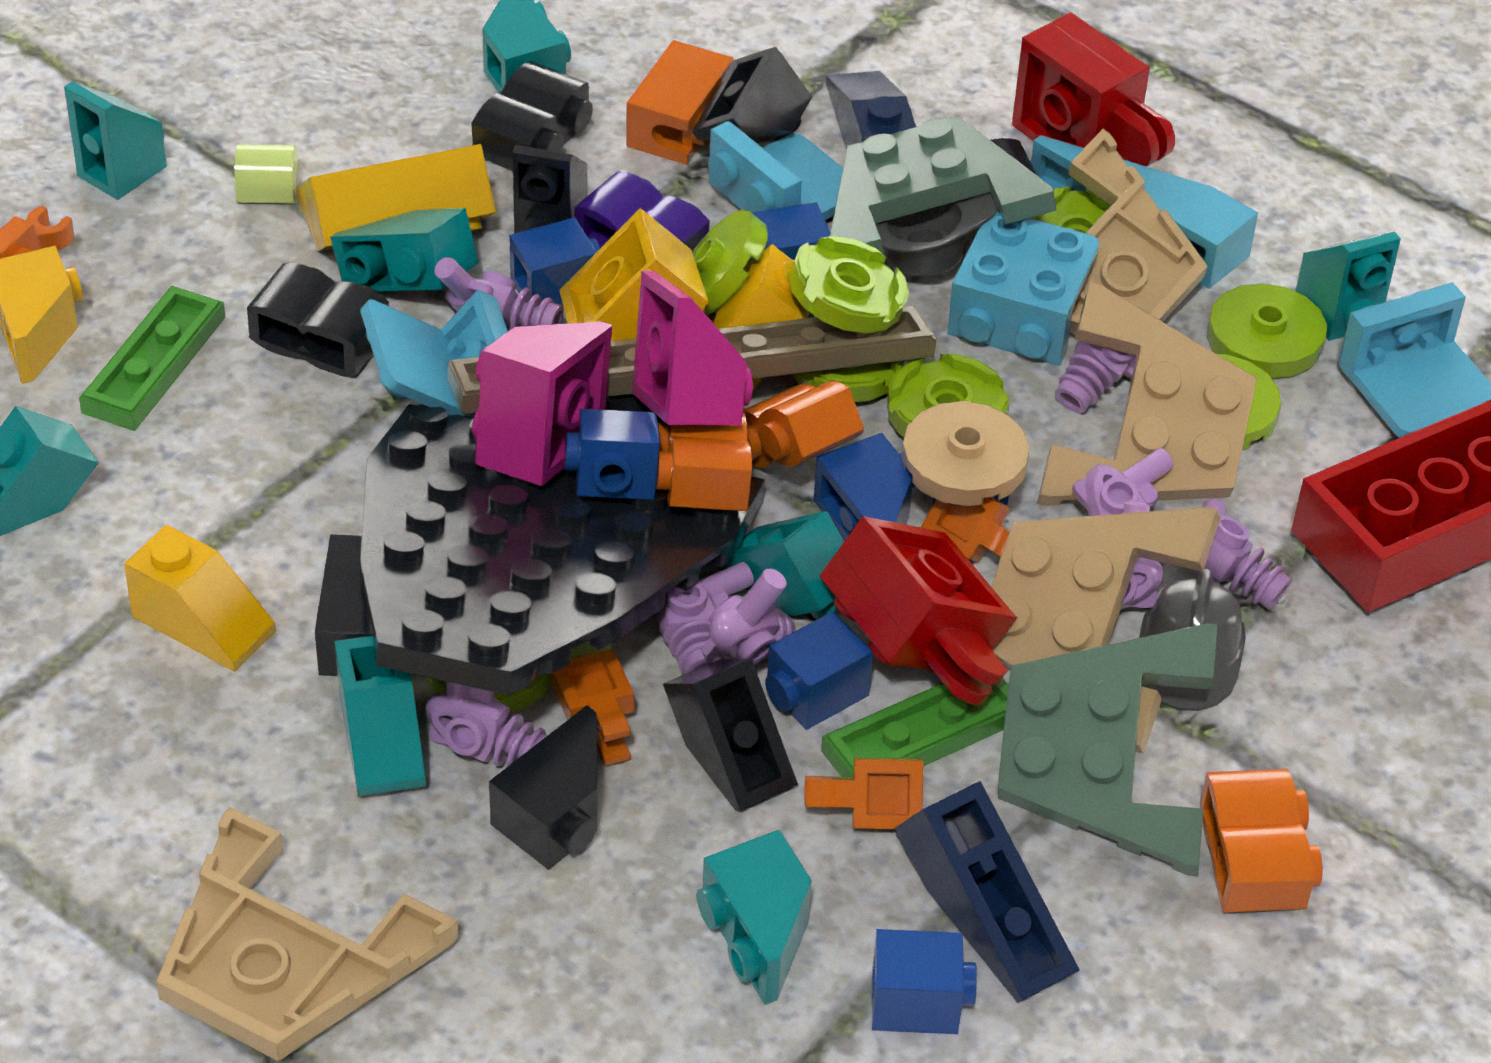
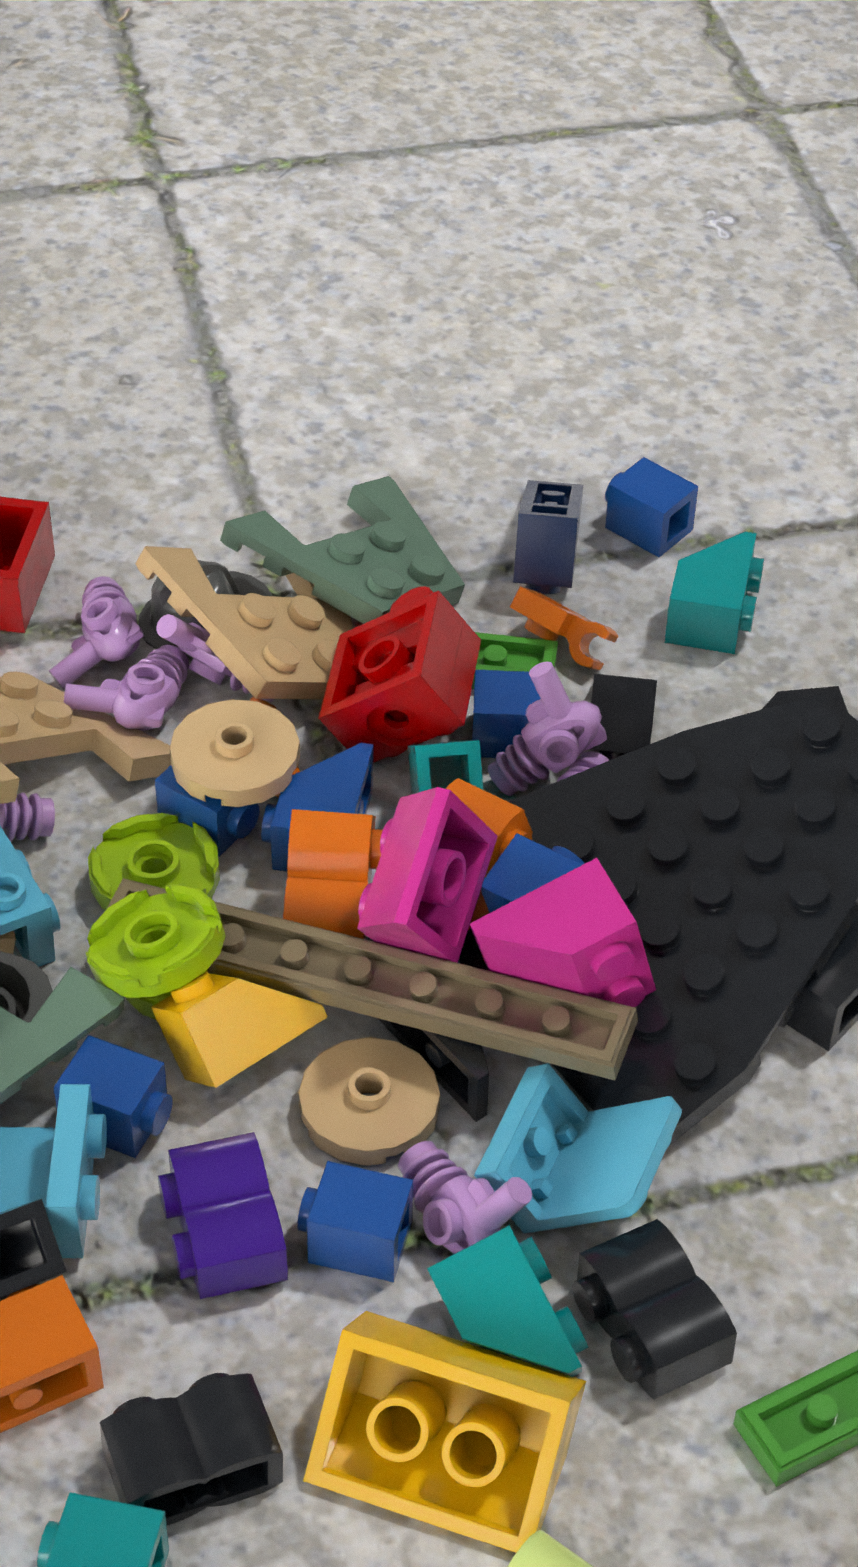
camera: 140 degrees left, 0 degrees up
(546, 186) = (290, 1288): black slope -> none
(610, 280) = (340, 1086): yellow slope -> none
(725, 253) = (186, 1074): lime plate -> none
(1259, 840) = (331, 459): orange brick -> none

